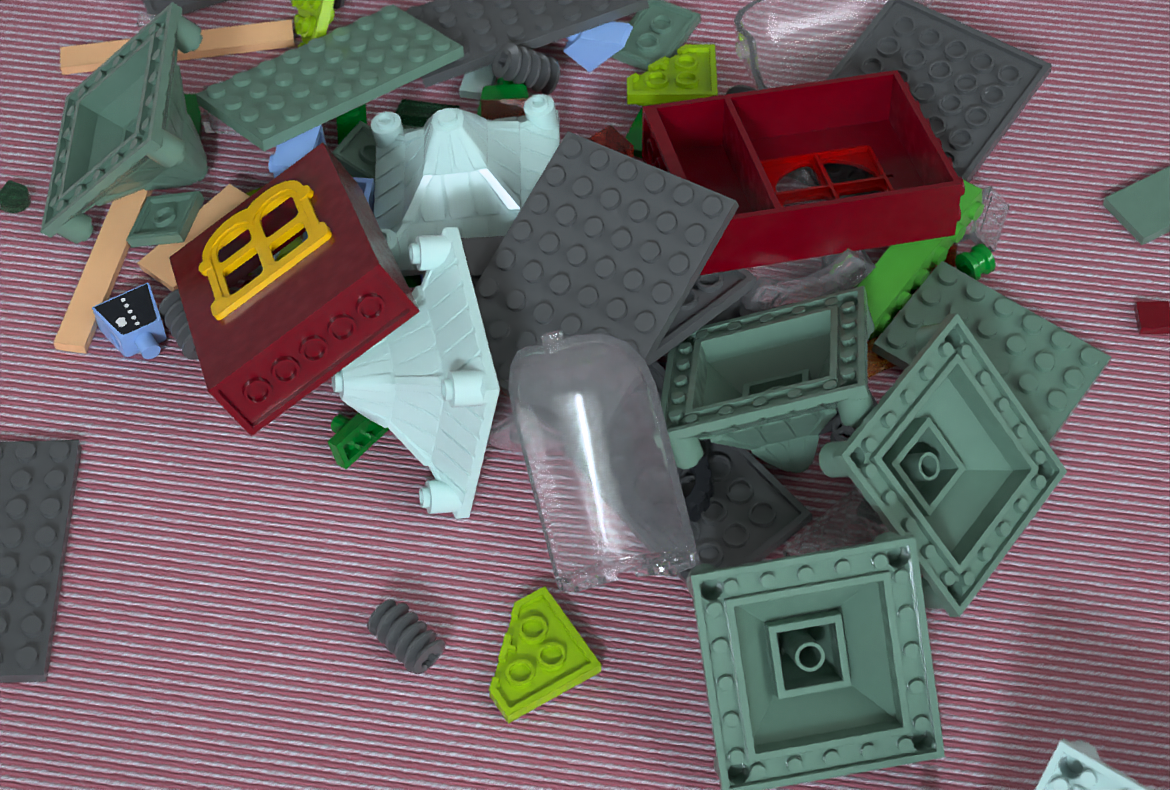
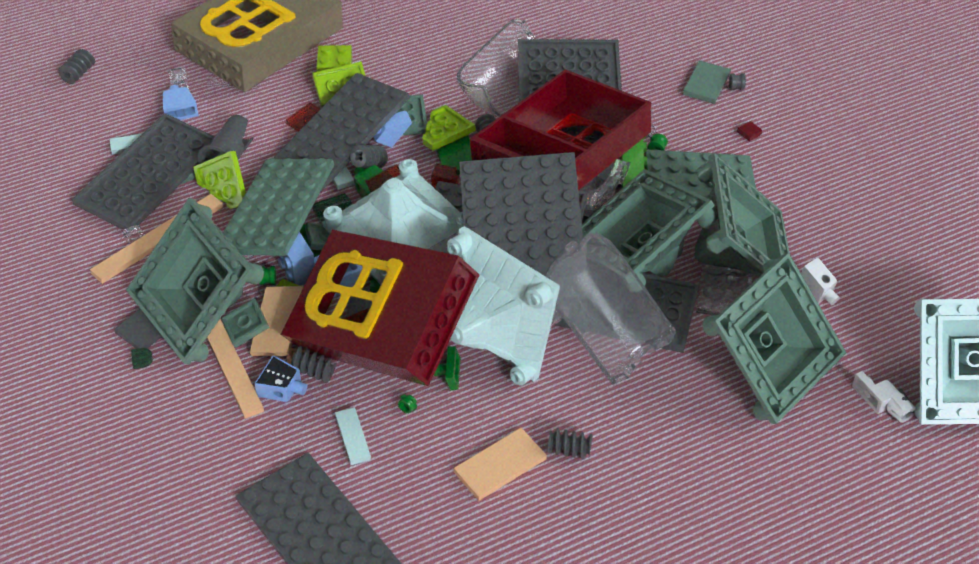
camera: 40 degrees left, 5 degrees down
(36, 160) = (138, 331): none -> dark grey tile
(154, 452) = (352, 436): none -> light aqua tile
(252, 169) = (269, 275): none -> green wheel
(259, 448) = (407, 403): none -> green plate
(297, 607) = (499, 464): none -> light nougat tile
(539, 657) = (635, 416): lime plate -> none
(1010, 619) = (820, 281): none -> white torso

